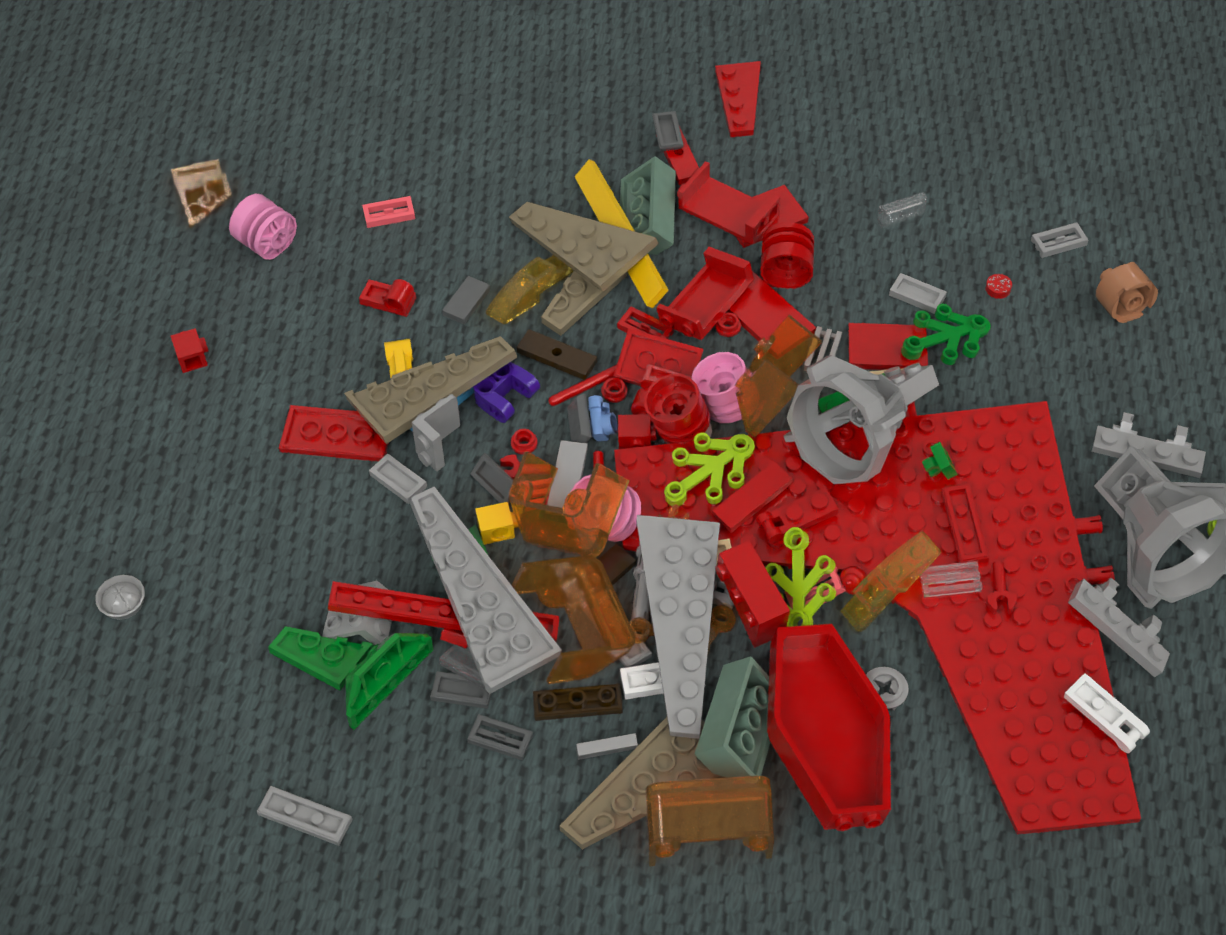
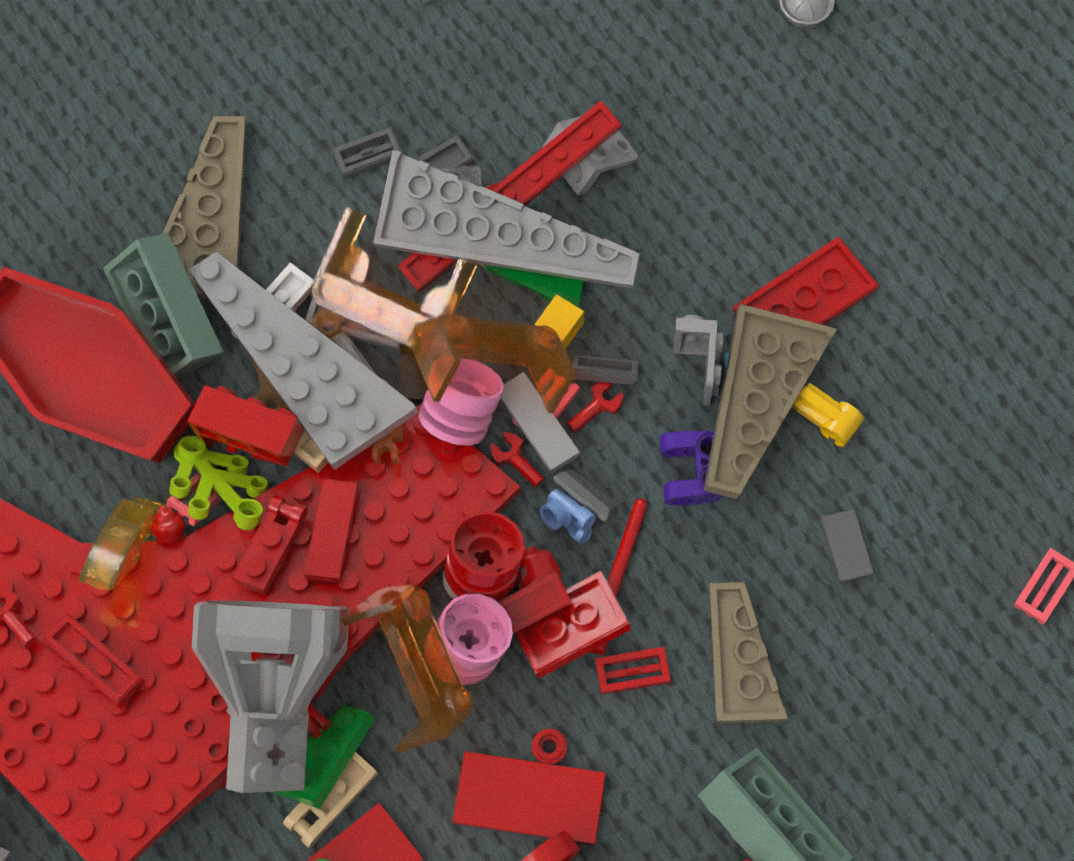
camera: 140 degrees right, 15 degrees up
(190, 350) = (1037, 255): red brick -> none
(318, 655) = (577, 90): green wing -> none
(382, 672) = (516, 114): green wedge -> none
(391, 298) = (922, 476): red plate -> none
(397, 478) = (699, 299): light grey tile -> none
(523, 435) = (621, 424): red plate -> none
(525, 287) = (792, 607): clear yellow slope -> none
(557, 354) = (707, 551): dark brown tile -> none
(560, 702) = (312, 246): dark brown tile -> none
(587, 246) = (777, 703): dark tan wing -> none
(606, 746) = (265, 208): light grey tile -> none
(610, 212) = (771, 761): yellow tile -> none
(614, 384) = (590, 554): red plate -> none
(635, 431) = (528, 520): red brick -> none
(707, 294) = (597, 751): red panel -> none
(709, 812) = (106, 189): clear orange windscreen -> none
(710, 465) = (397, 529): lime plant -> none
(827, 336) = (411, 773): light grey tile -> none
(898, 688) = (57, 449): light grey gear -> none
(939, 462) = (160, 702): green tile -> none
(952, 569) = (54, 586): clear tile -> none

